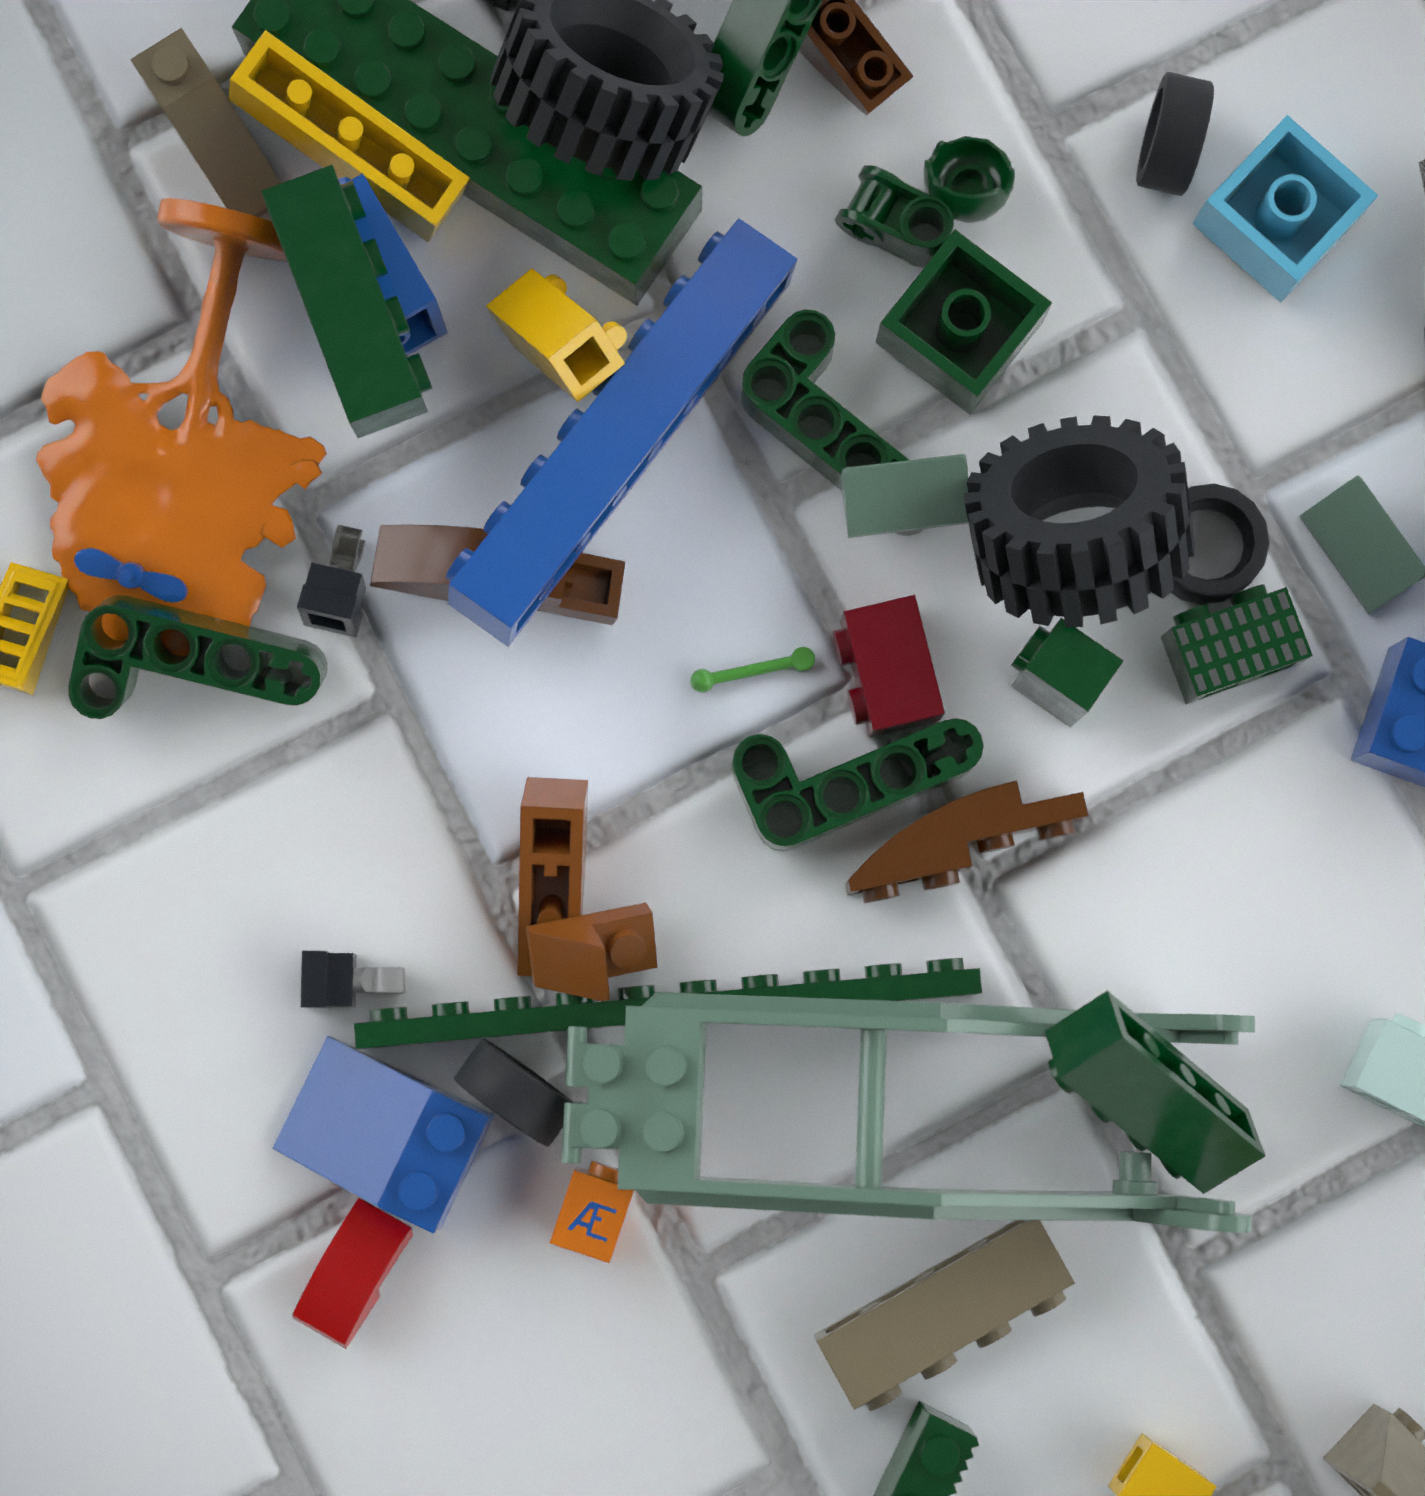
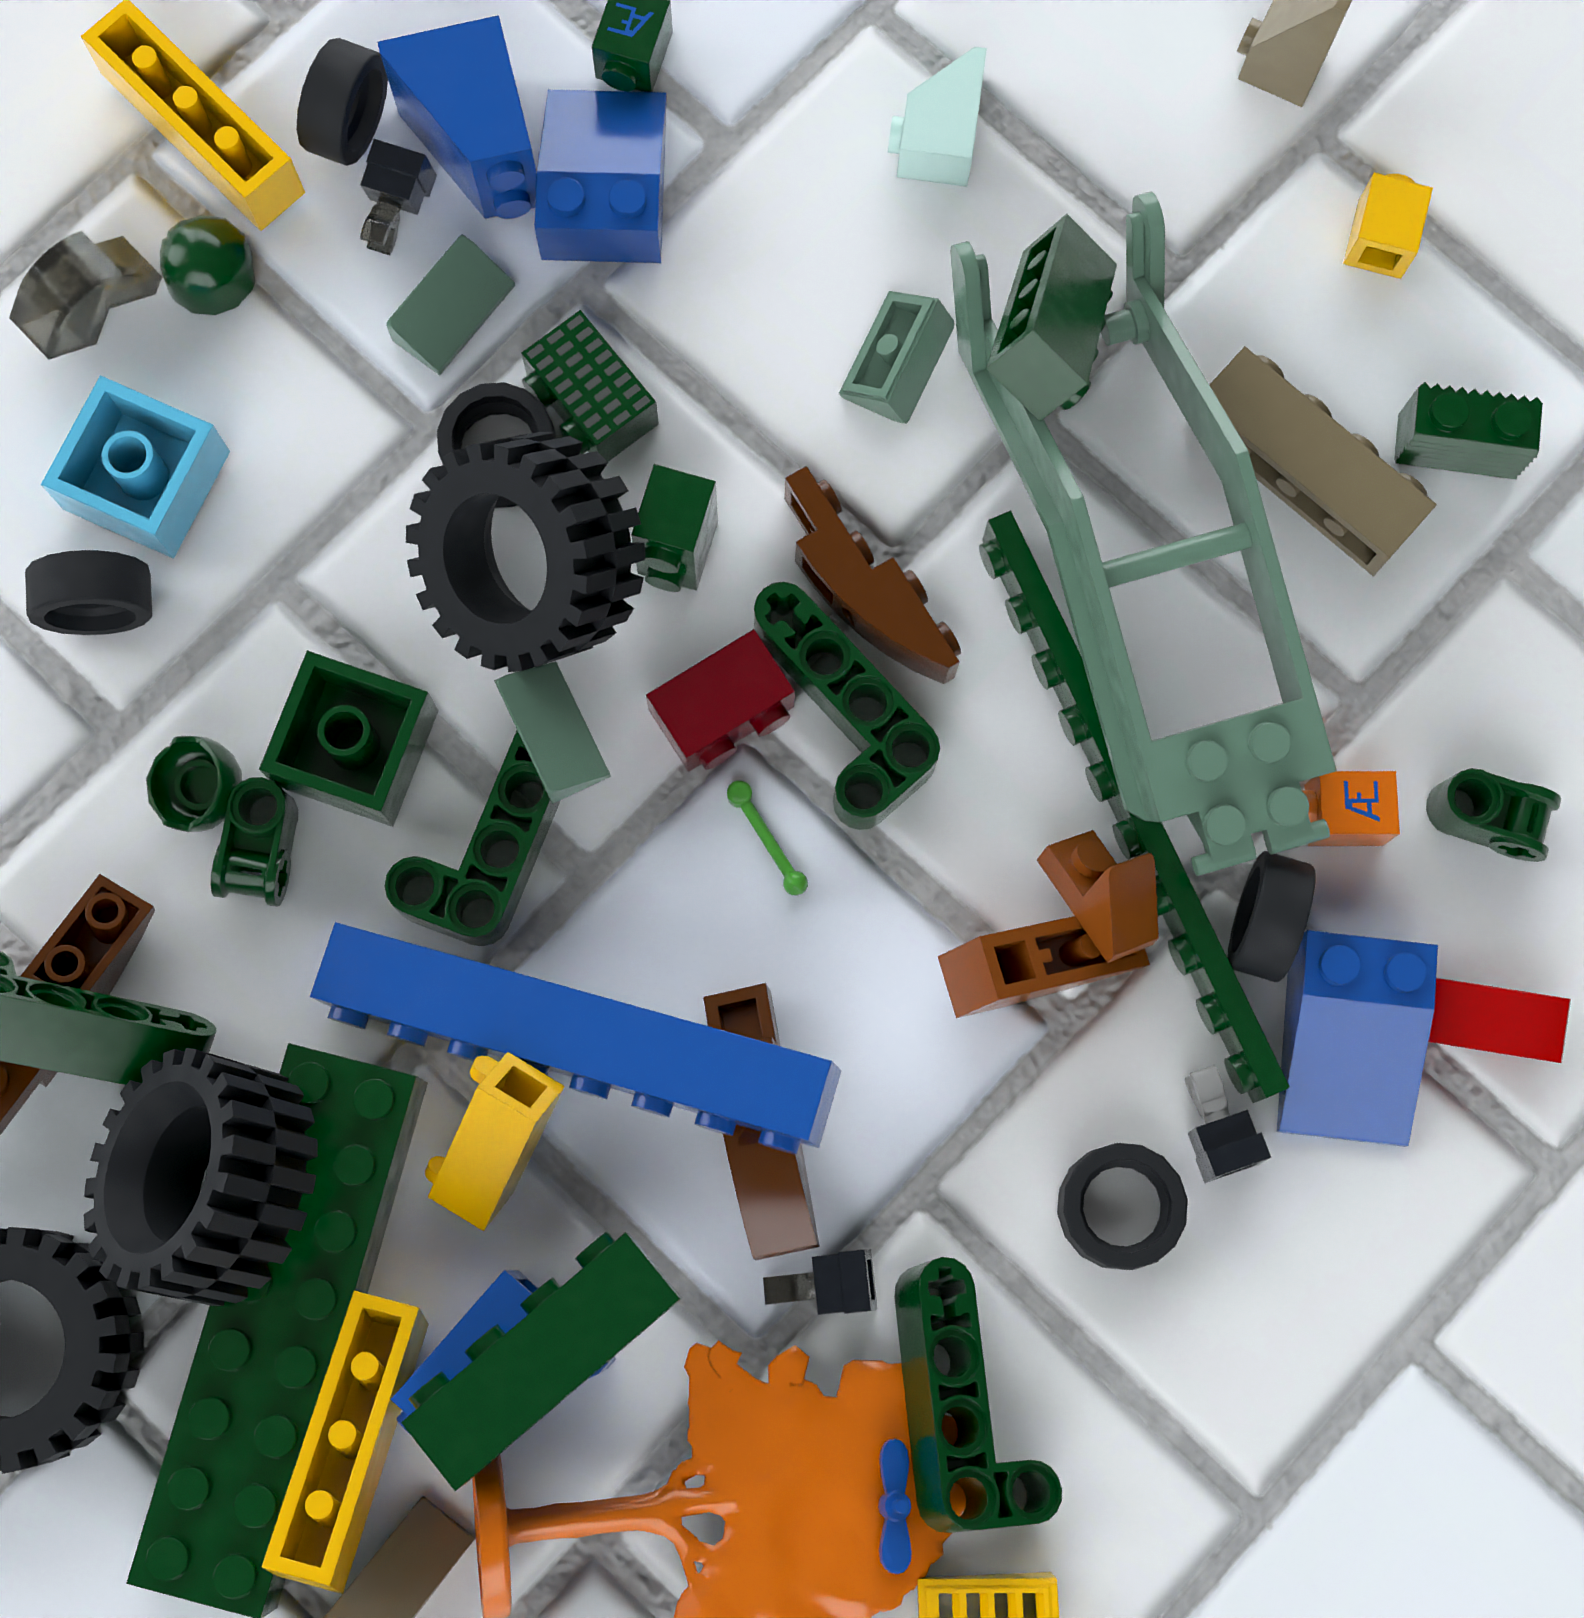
camera: 110 degrees left, 5 degrees down
(277, 833) = (1169, 1190): none -> black tyre
(537, 1360) = (1506, 814): none -> dark green piece
(1181, 953) = (898, 355): none -> sand green slope

